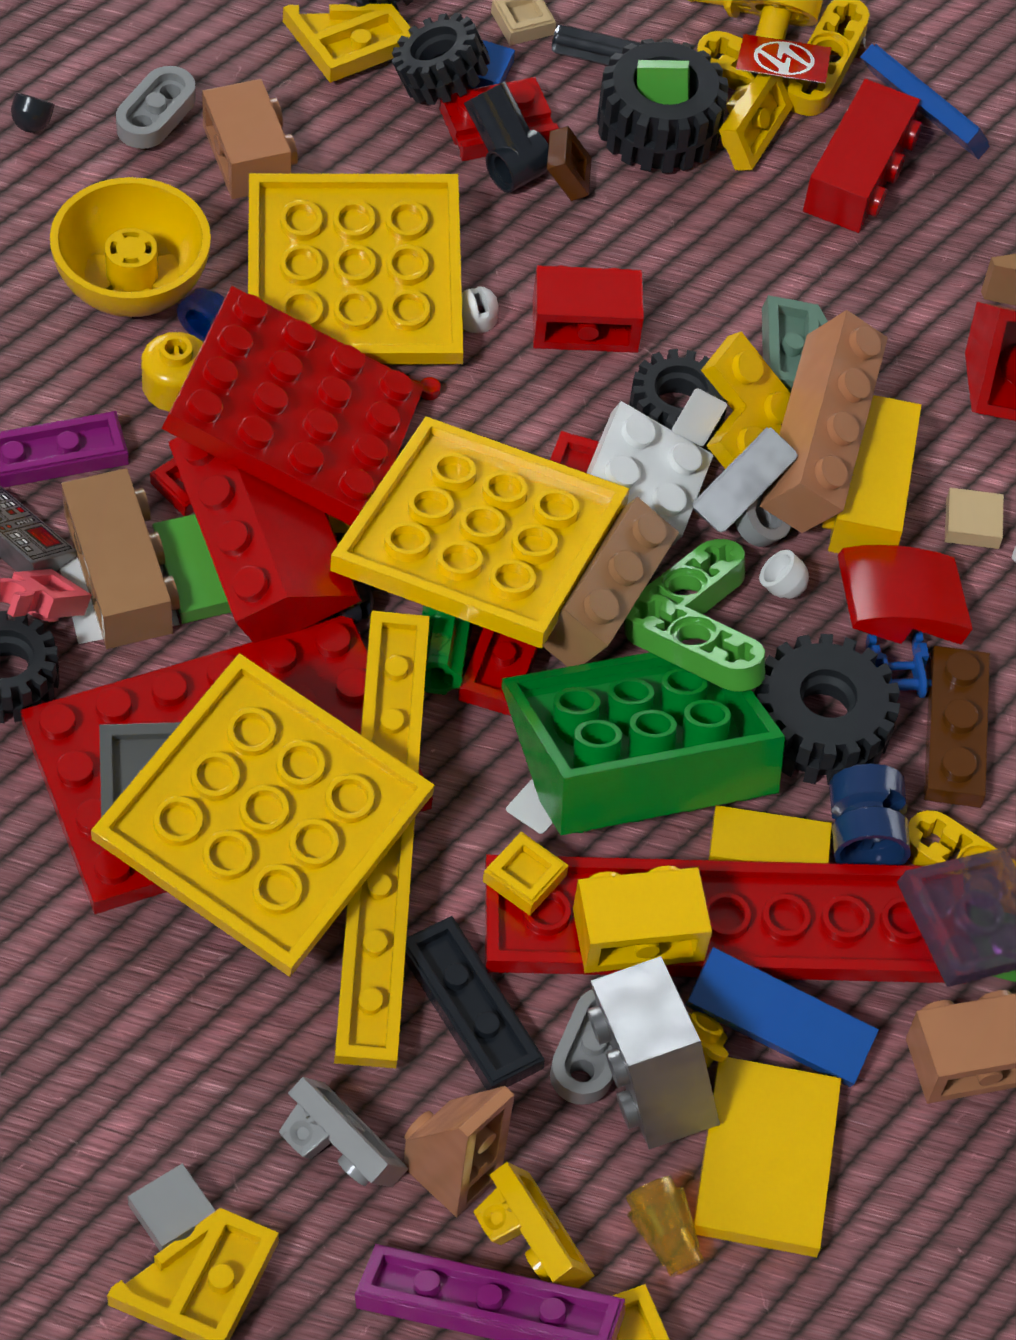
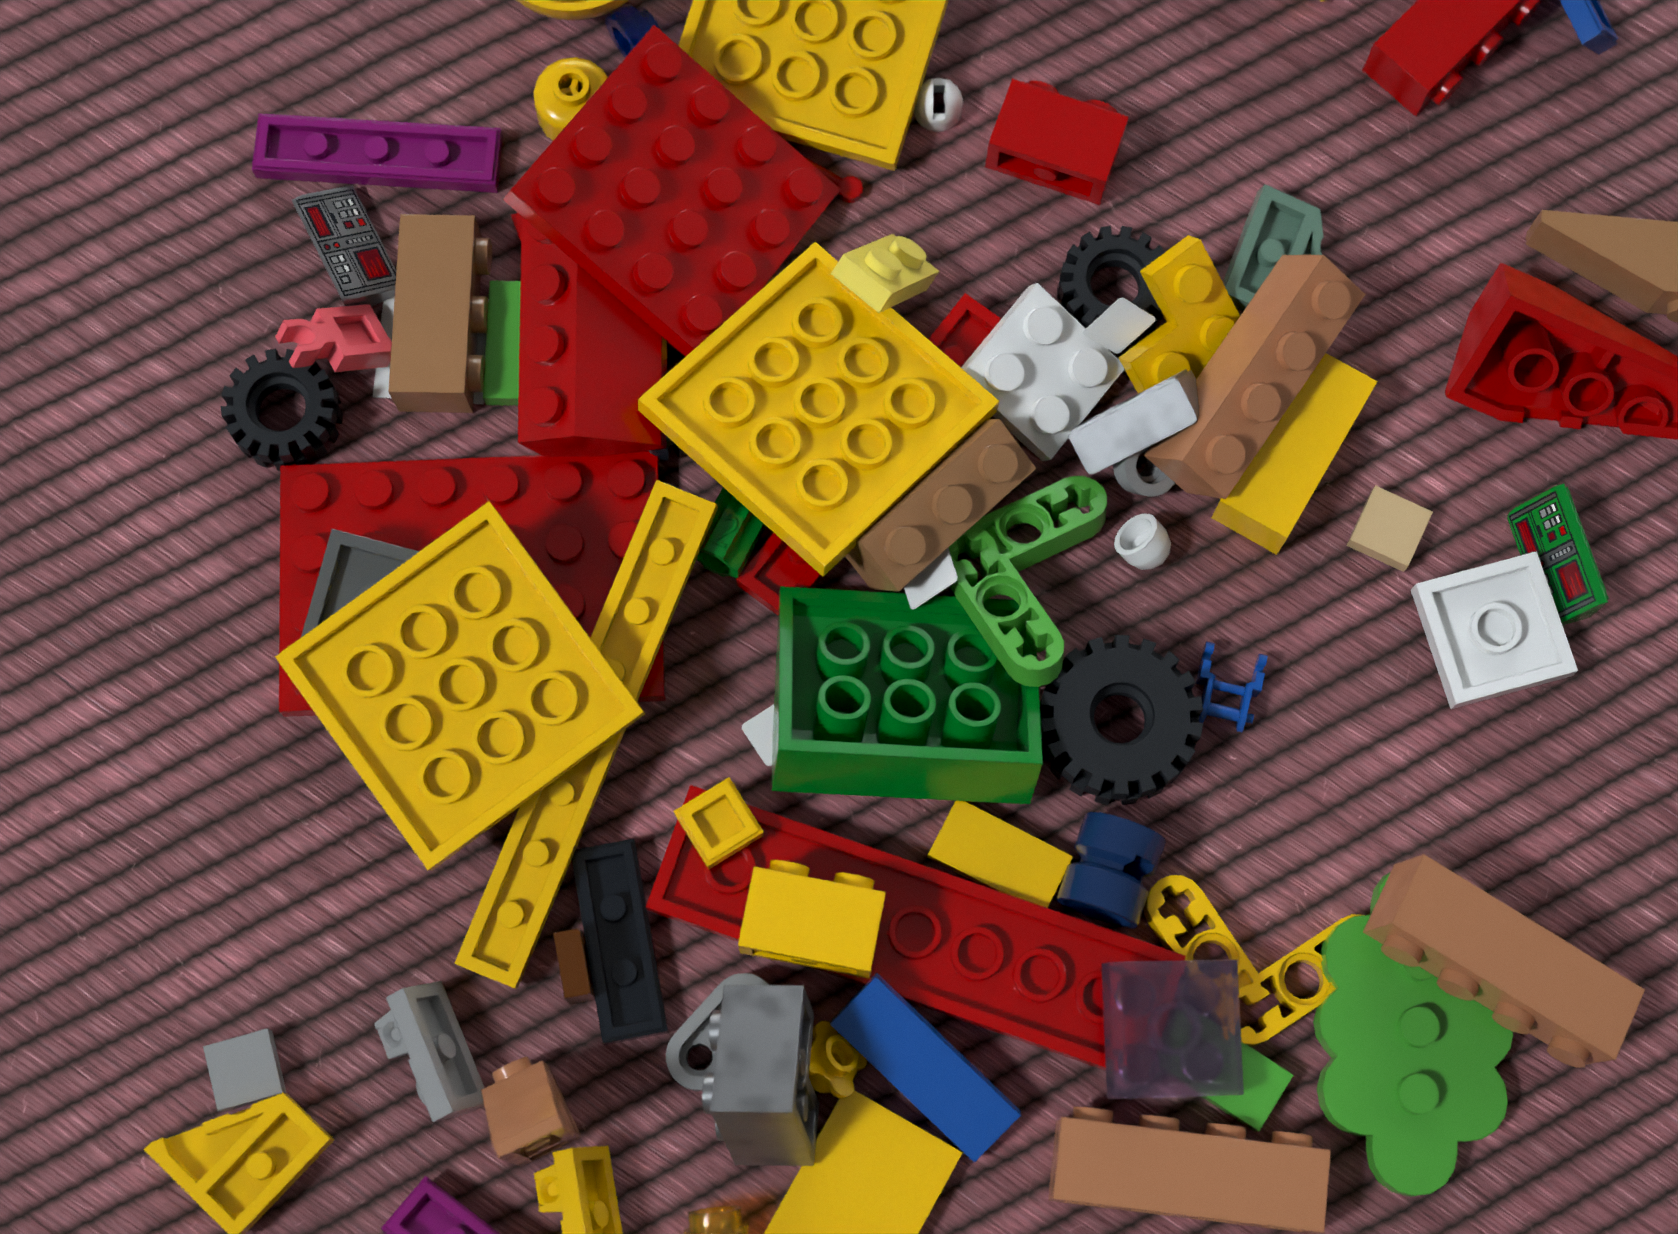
camera: 25 degrees right, 20 degrees up
(443, 1028) = (574, 966): none -> reddish brown tile
(493, 423) = (886, 271): none -> light yellow plate
(627, 638) = (931, 580): none -> white sticker
(904, 590) = (1264, 606): red slope -> none
(957, 727) = (1261, 778): reddish brown plate -> none

